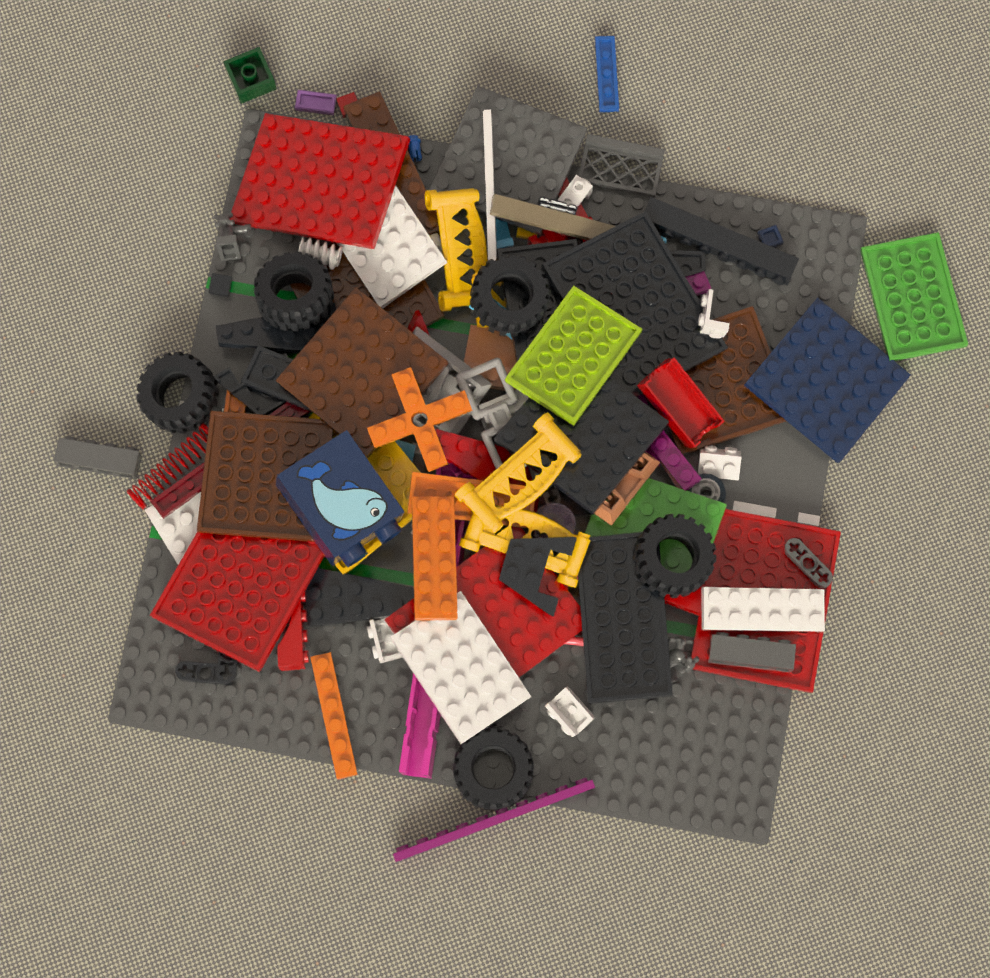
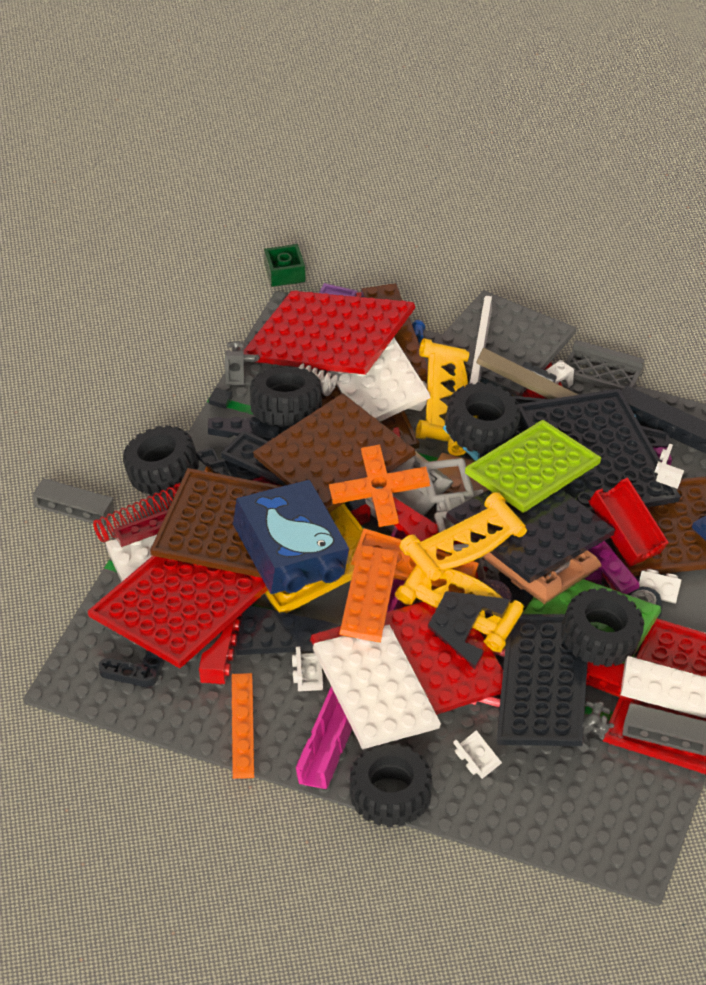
camera: 10 degrees right, 30 degrees down
(501, 816) = (381, 832): magenta plate -> none
(606, 74) = (601, 308): blue plate -> none

